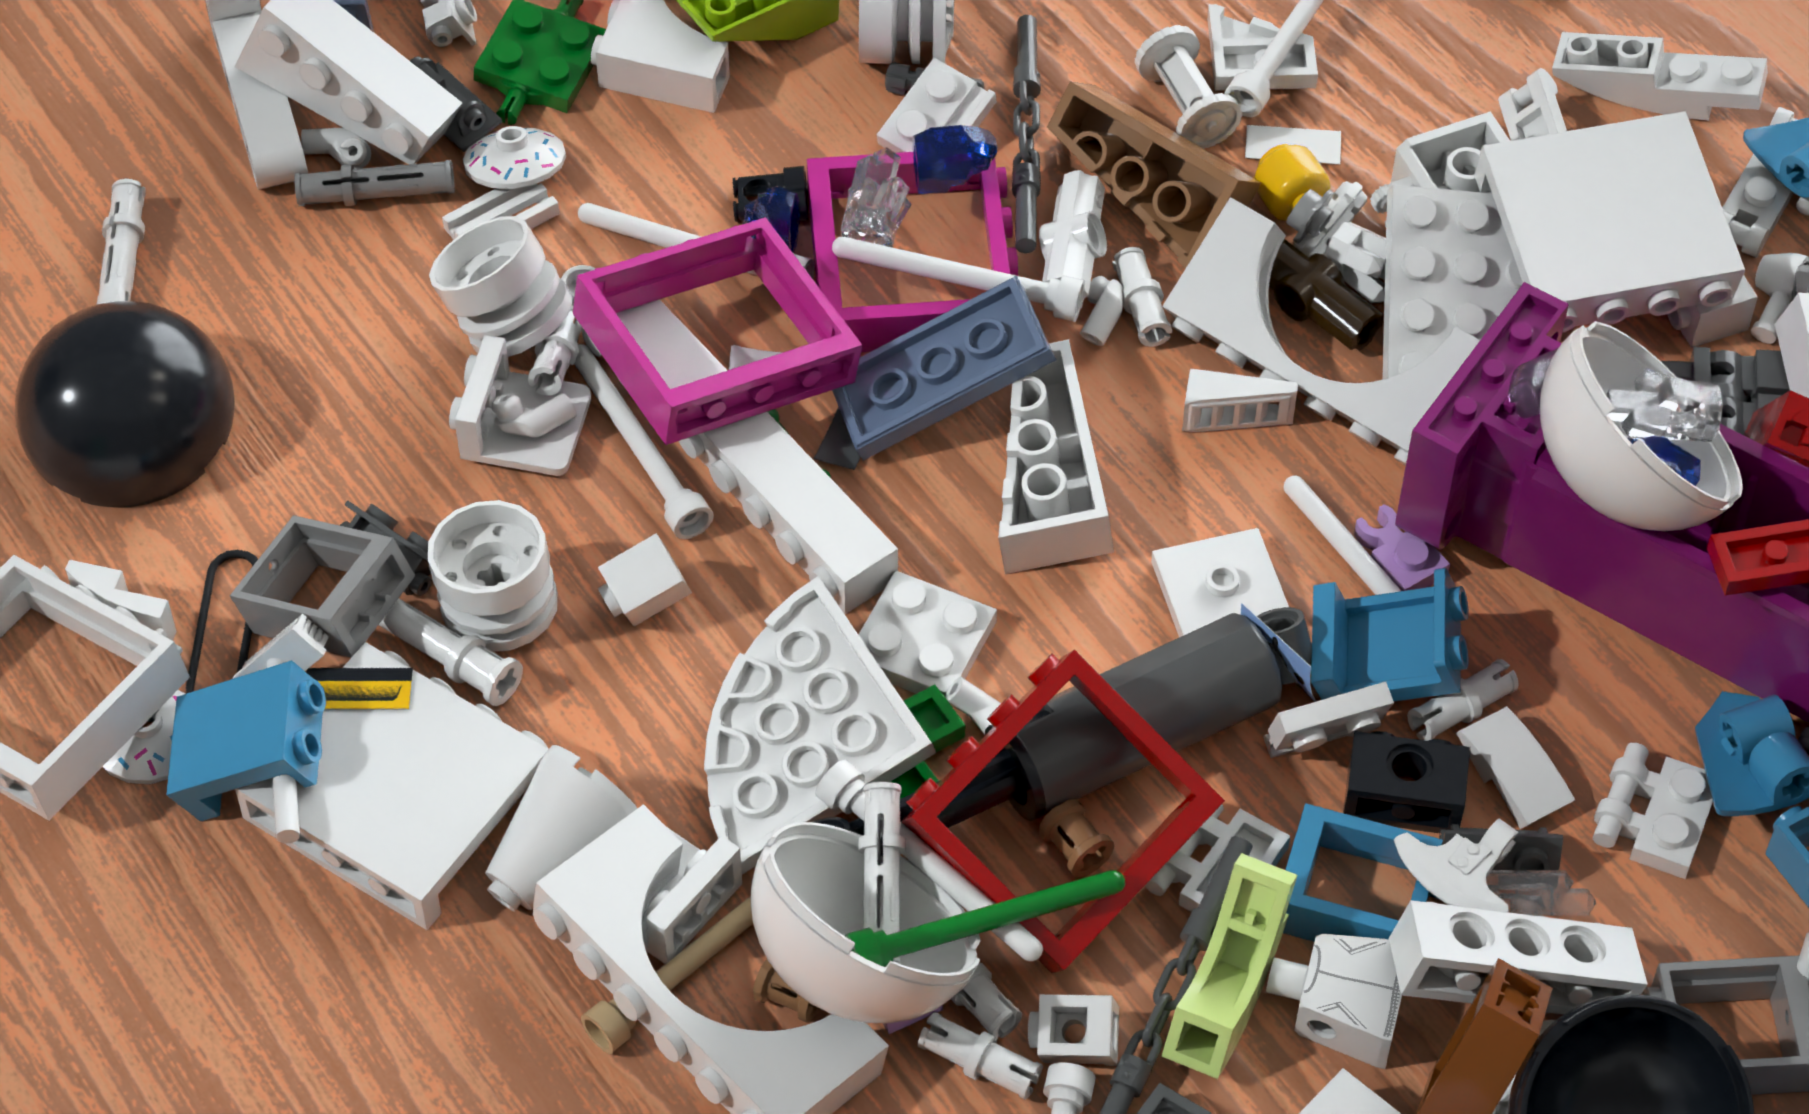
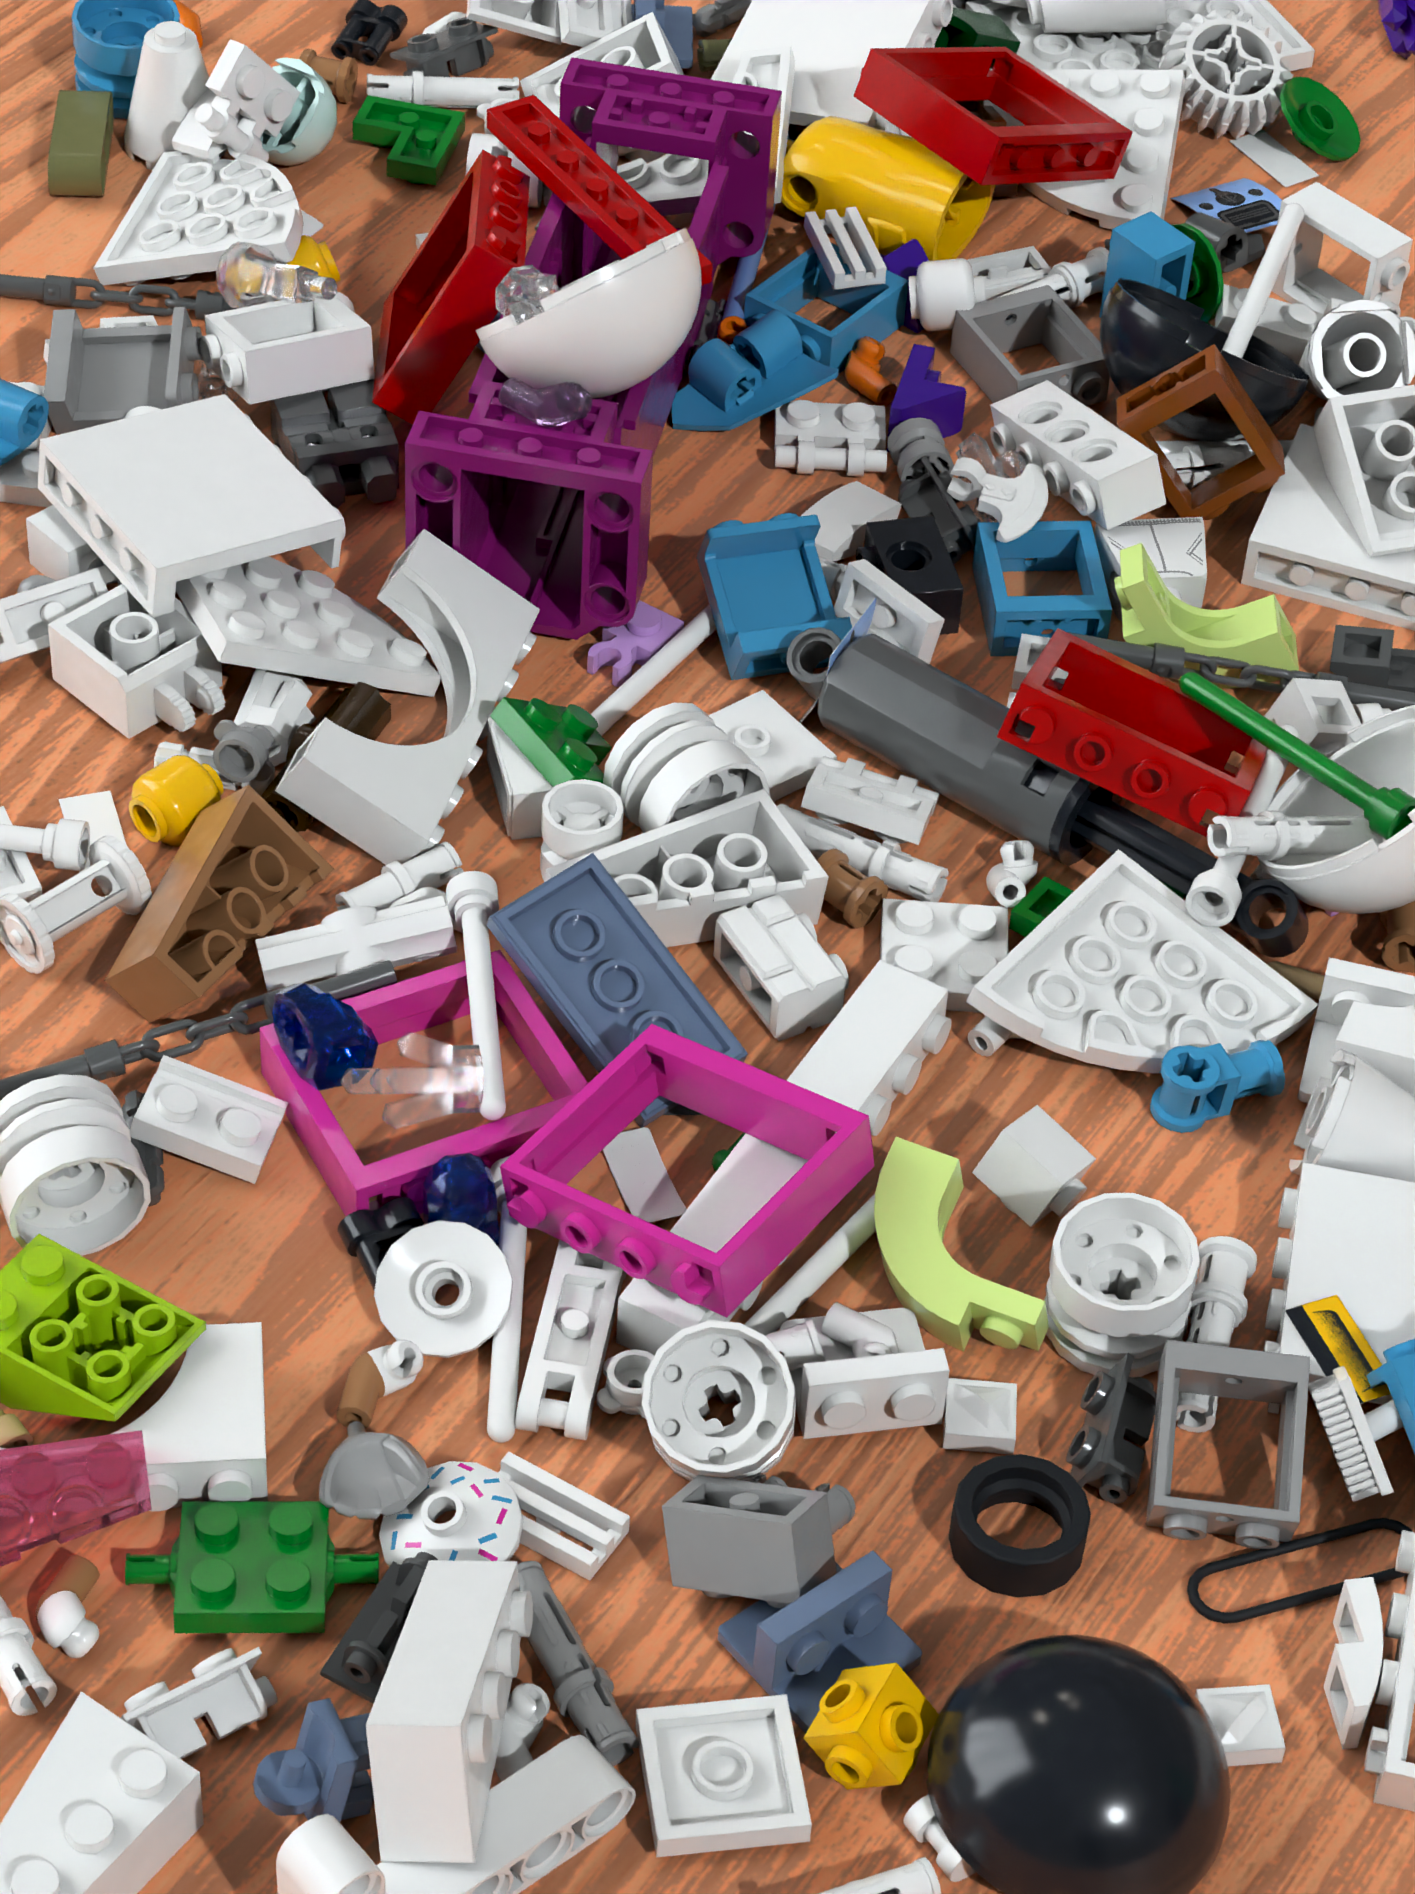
camera: 115 degrees left, 10 degrees down
(123, 528) = (1245, 1723): none -> white tile
(225, 304) = (871, 1726): none -> yellow brick
(247, 233) = (722, 1775): none -> white plate
(314, 315) = (819, 1635): none -> sand blue bracket
(342, 427) = (1028, 1482): none -> black tyre
(387, 277) = (754, 1537): none -> light grey brick
(453, 481) = (980, 1416): none -> white tile
(573, 119) = (372, 1475): none -> light grey piece
(595, 472) = (911, 1216): none -> yellowish green arch
(621, 244) = (570, 1343): none -> white plate
(663, 152) = (375, 1376): none -> arm
(684, 754) = (1207, 1080): none -> dark azure connector
(709, 199) = (435, 1257): none -> white dish
(943, 505) = (780, 966): none -> white brick
(1017, 585) = (851, 890): none -> medium nougat bush
(1041, 622) = (884, 860): none -> white pin
(1102, 614) = (854, 795): none -> white plate
(1135, 412) = (578, 820): none -> white wheel
(1168, 486) = (677, 766): none -> white wheel
(1258, 411) = (554, 738): none -> green plate
(1593, 860) = (915, 440): none -> light grey wheel
(1674, 883) = (925, 396): none -> dark purple slope
(1759, 877) = (864, 372): none -> orange arm

